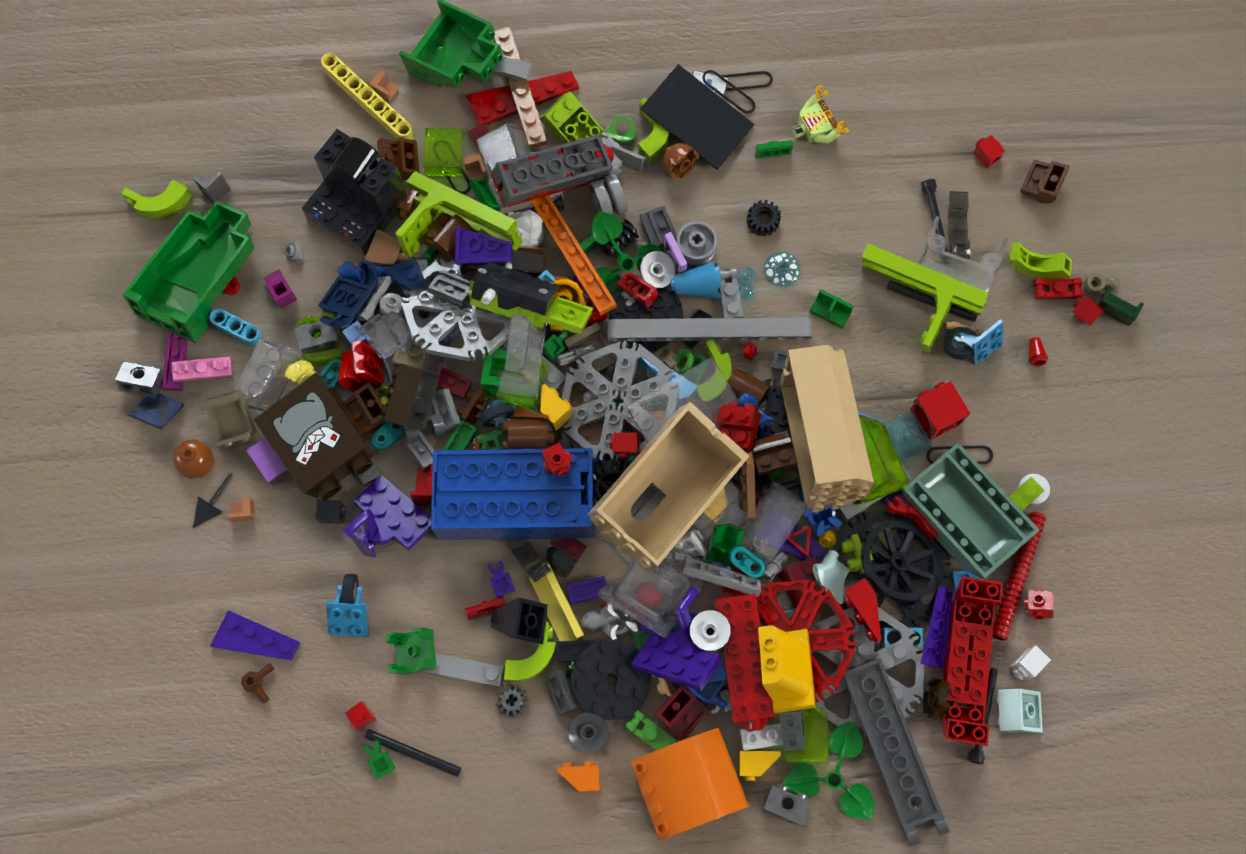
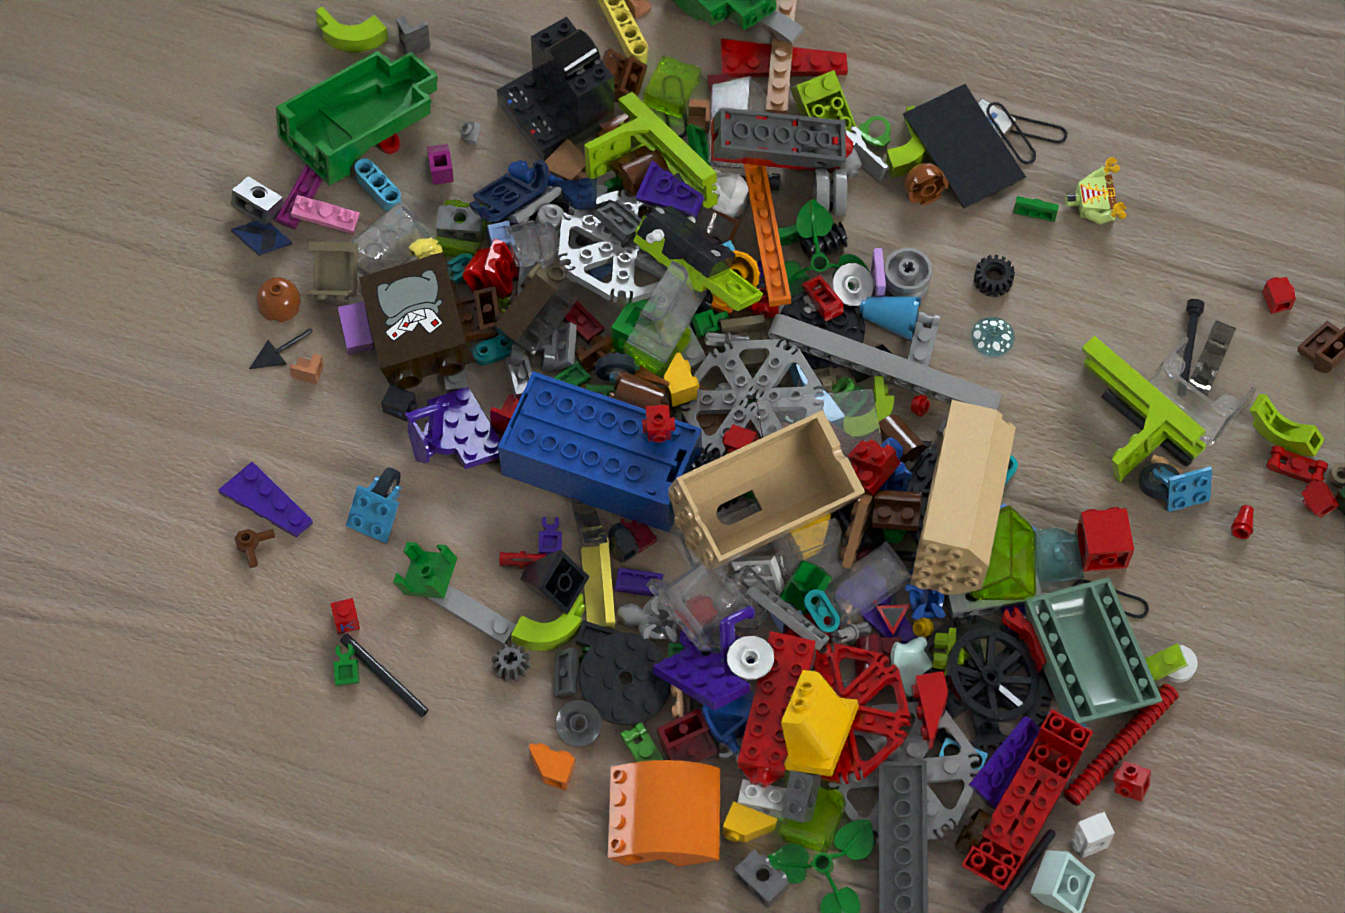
camera: 20 degrees right, 10 degrees down
(656, 225) = (872, 237): dark grey plate -> none
(746, 291) = (943, 343): clear light blue plate -> none
(831, 308) = (1030, 395): green panel -> none

